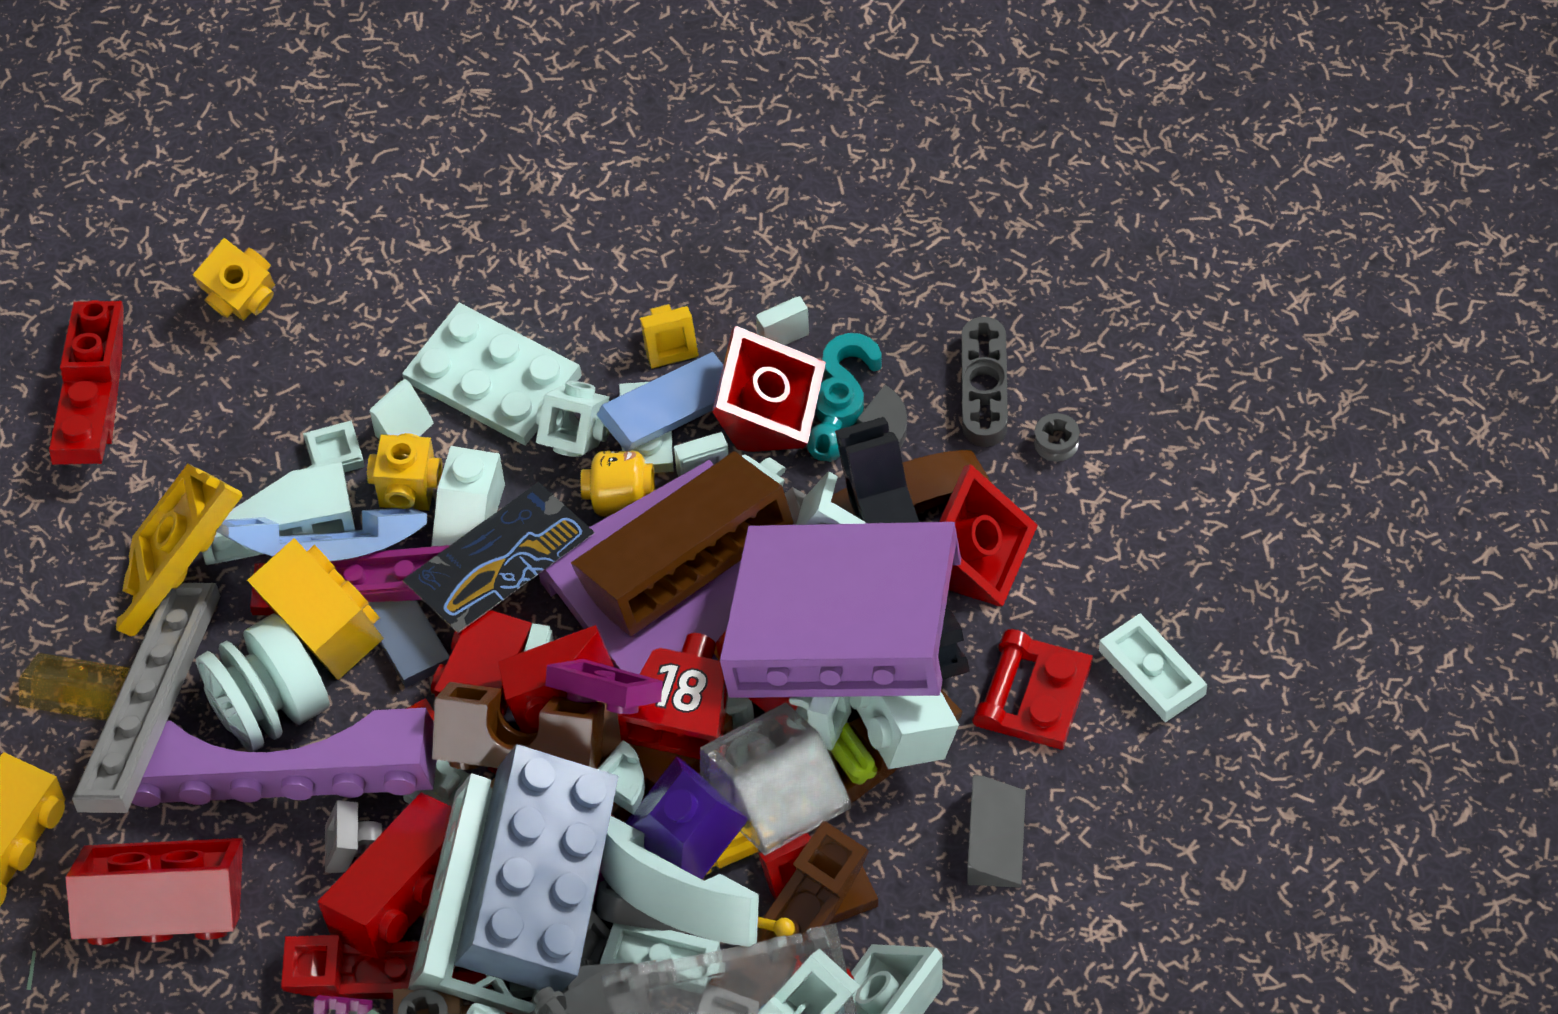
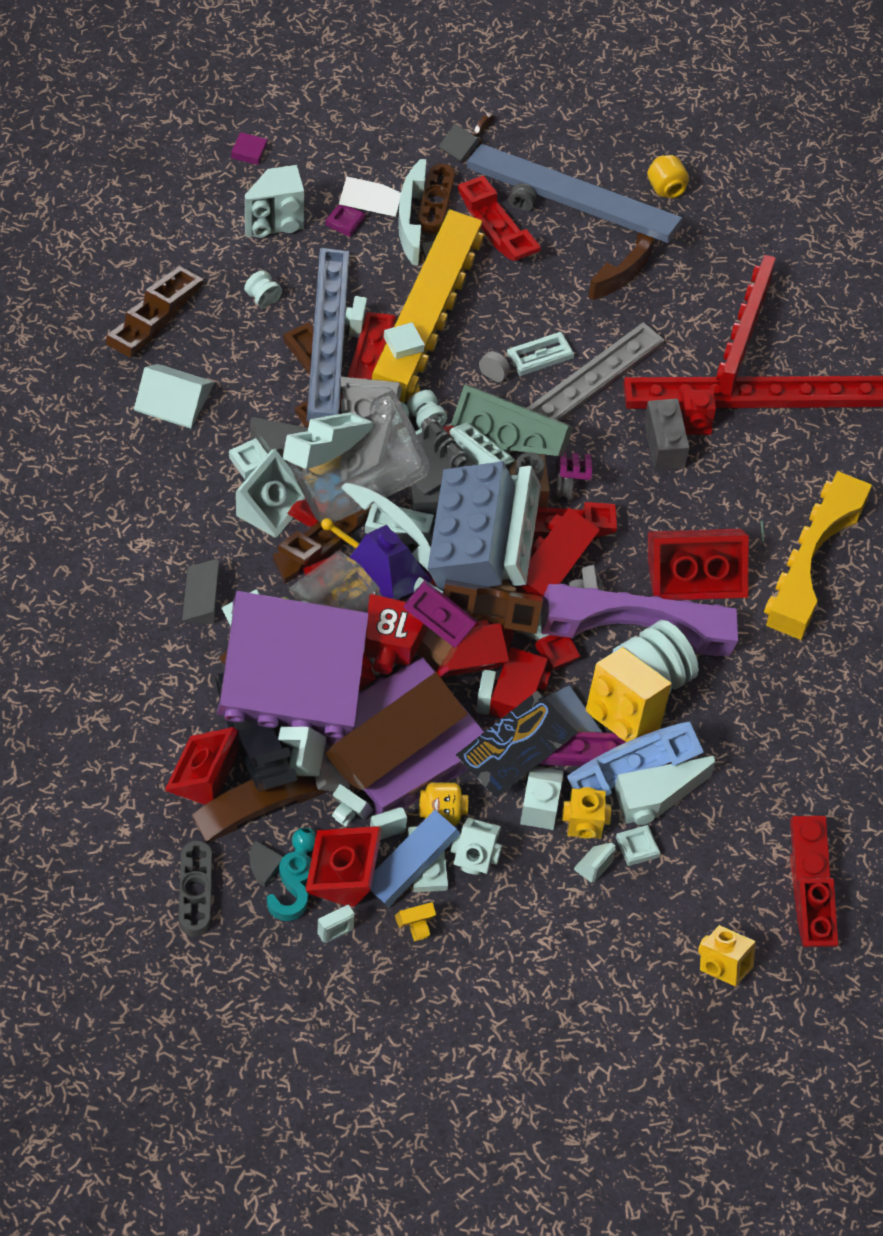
camera: 170 degrees right, 0 degrees up
(71, 686) = (774, 691): clear yellow slope -> none
(146, 700) = (724, 655): light grey tile -> none
(171, 539) = (727, 753): yellow wing -> none
(489, 372) = (537, 899): light aqua plate -> none
(1050, 694) = (163, 675): red plate -> none
(1052, 423) = (152, 855): dark grey bush -> none
(1152, 667) = (97, 687): light aqua plate -> none

